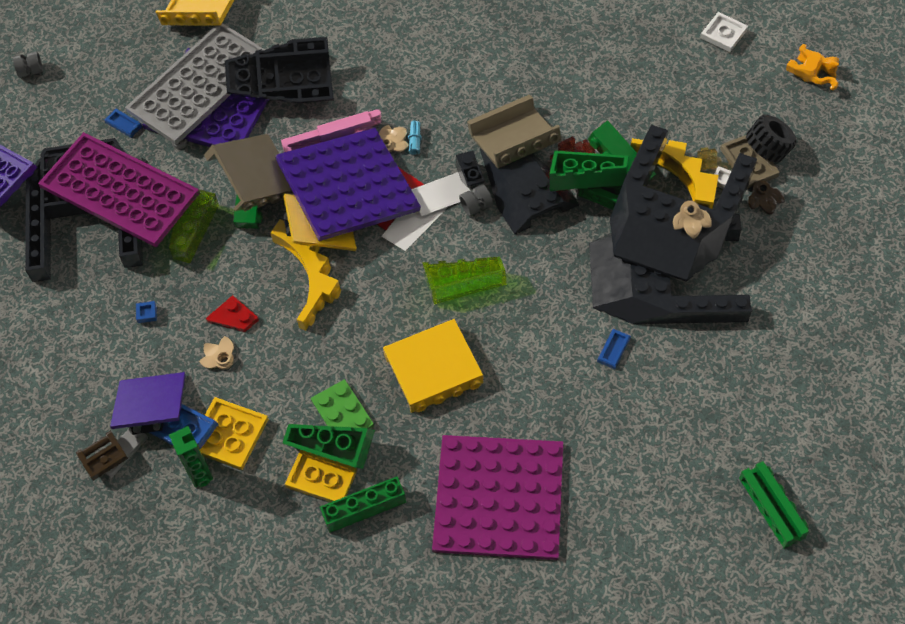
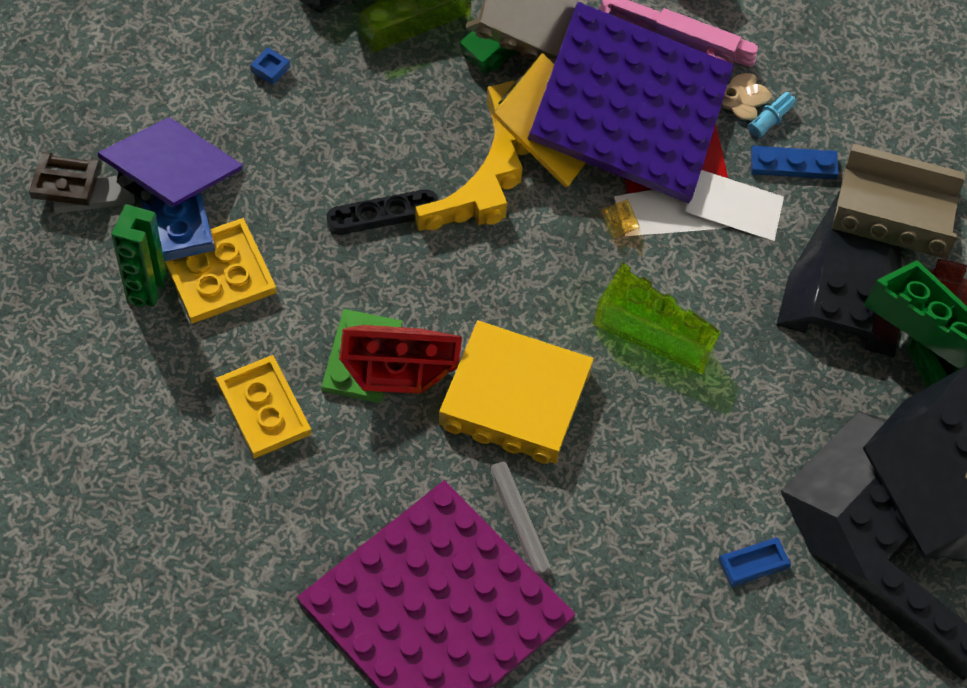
camera: 35 degrees right, 0 degrees up
(216, 353) = (297, 173): tan plate -> none
(233, 315) = (358, 147): red wing -> none
(275, 334) = (381, 208): none -> black beam
(339, 444) = (311, 381): green wedge -> none
(363, 504) = (274, 476): green brick -> none
(366, 395) = (398, 357): none -> red wedge
(395, 244) = (620, 218): none -> clear yellow tile
(446, 152) = (794, 162): none -> blue plate
(469, 169) = (796, 201): black slope -> none
(476, 200) = (756, 247): dark grey wheel -> none
(494, 421) = (520, 519): none -> light grey axle

